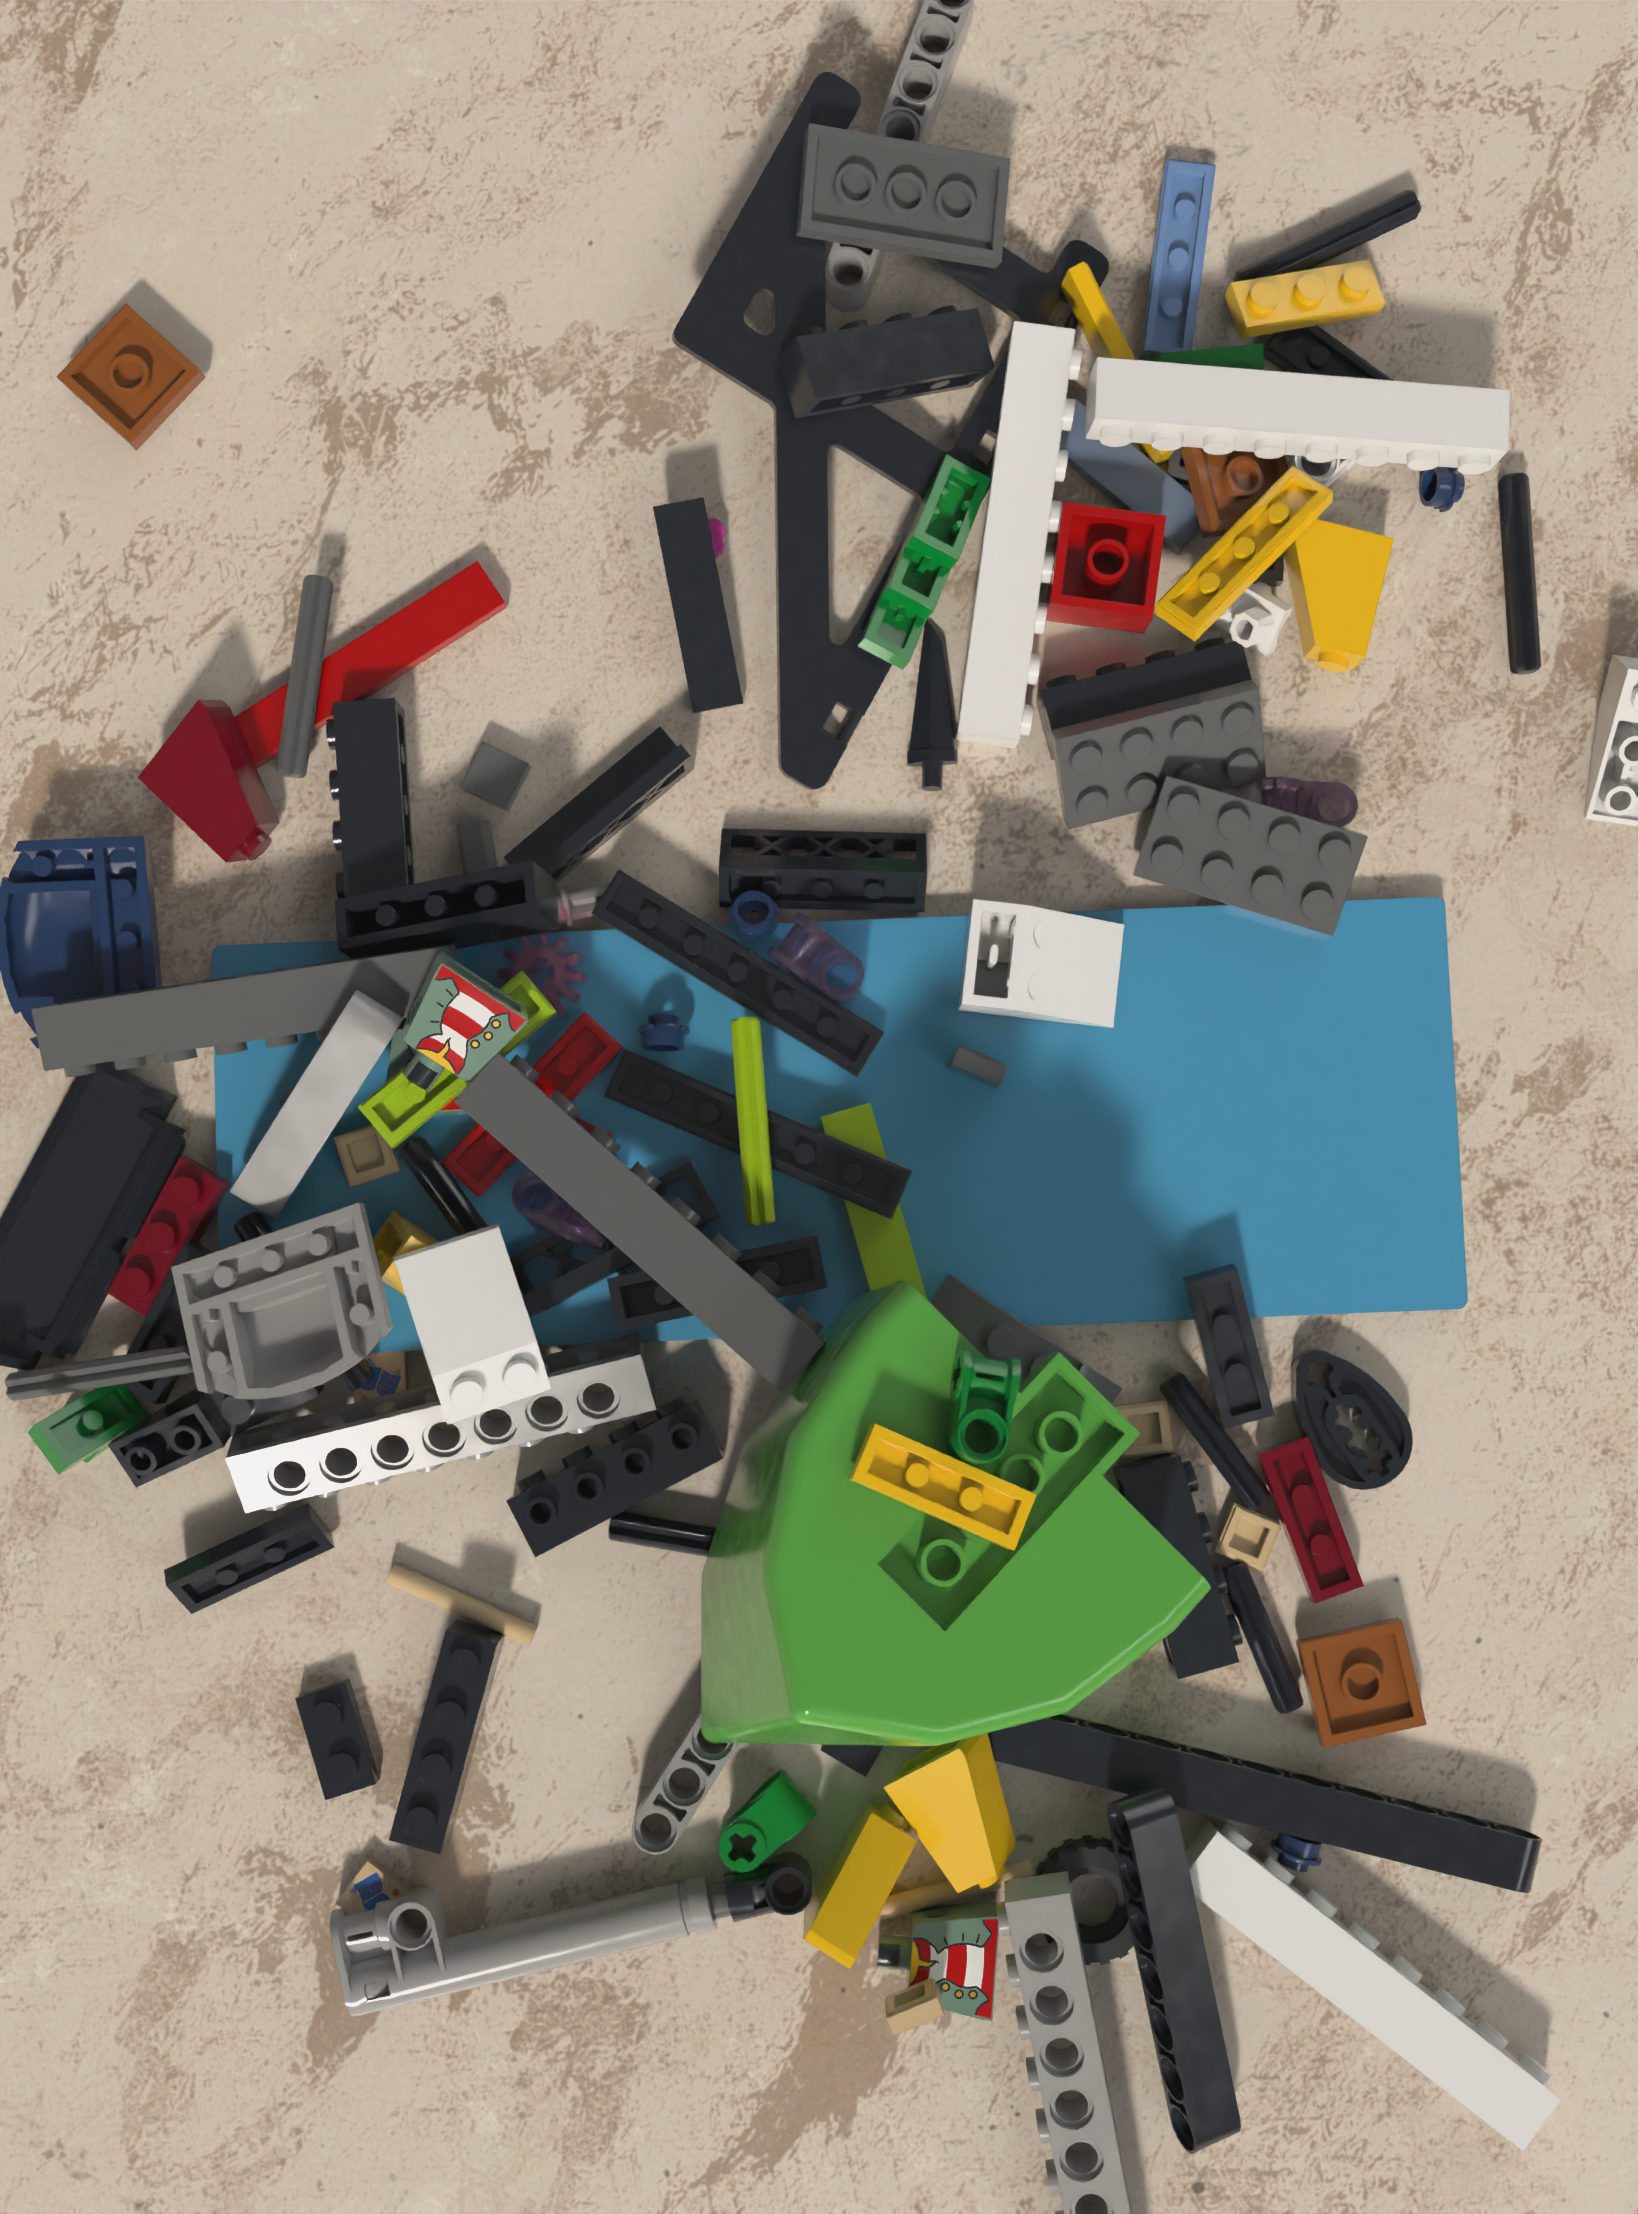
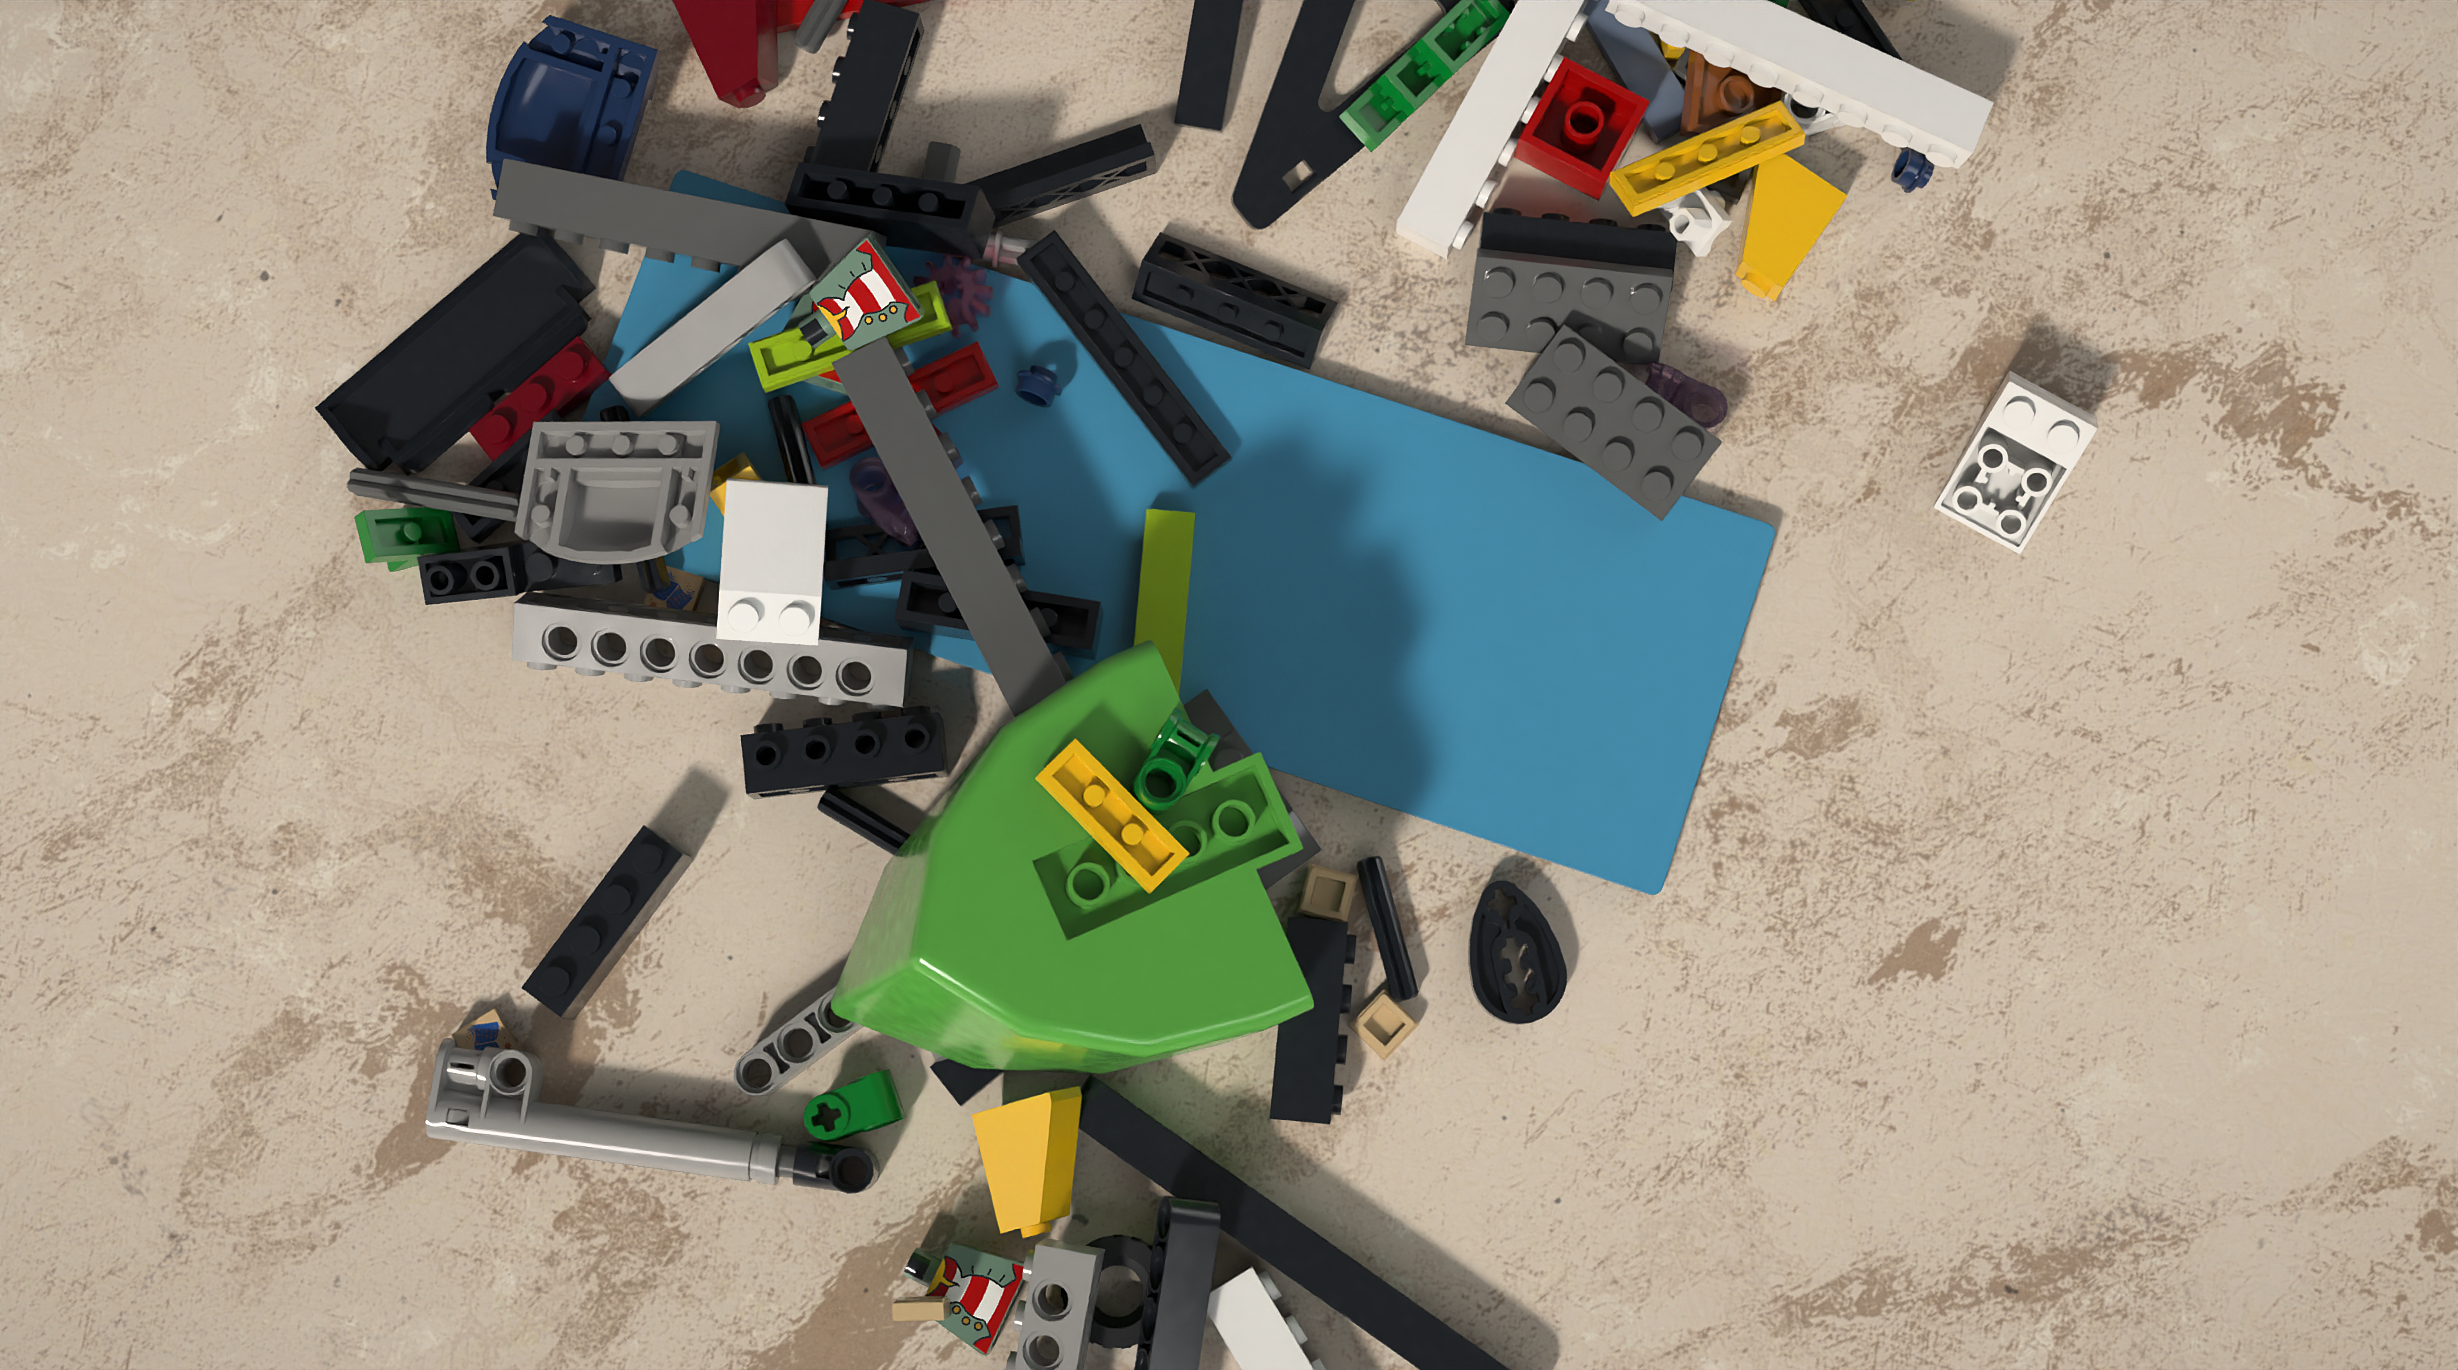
camera: 25 degrees right, 5 degrees down
(249, 1558) = (498, 704): black plate -> none
(337, 1739) = (510, 893): black plate -> none
(366, 1156) = (739, 395): tan tile -> none
(461, 1604) = (666, 817): tan bar -> none
(495, 776) = (980, 115): dark grey tile -> none
(752, 1121) = (1084, 486): lime axle -> none
(753, 902) = (1157, 302): dark blue plate -> none
(793, 1146) = (1087, 503): black tile -> none
(817, 958) = (1193, 368): clear purple piece -> none
(858, 1882) = (918, 1187): yellow slope -> none
(932, 725) = (1379, 214): black bar -> none
(944, 1892) = (986, 1235): tan bar -> none
(978, 1066) = (1301, 516): dark grey tile -> none
(1040, 964) = (1390, 447): white slope -> none
(1228, 1346) = (1429, 845): black plate -> none
(1262, 1638) = (1361, 1119): black axle -> none
(1296, 1852) = (1320, 1319): dark blue plate -> none
(1309, 1519) = (1444, 1028): dark red plate -> none
(1360, 1682) = (1434, 1191): dark orange plate -> none
(1519, 573) = (1954, 271): black axle -> none

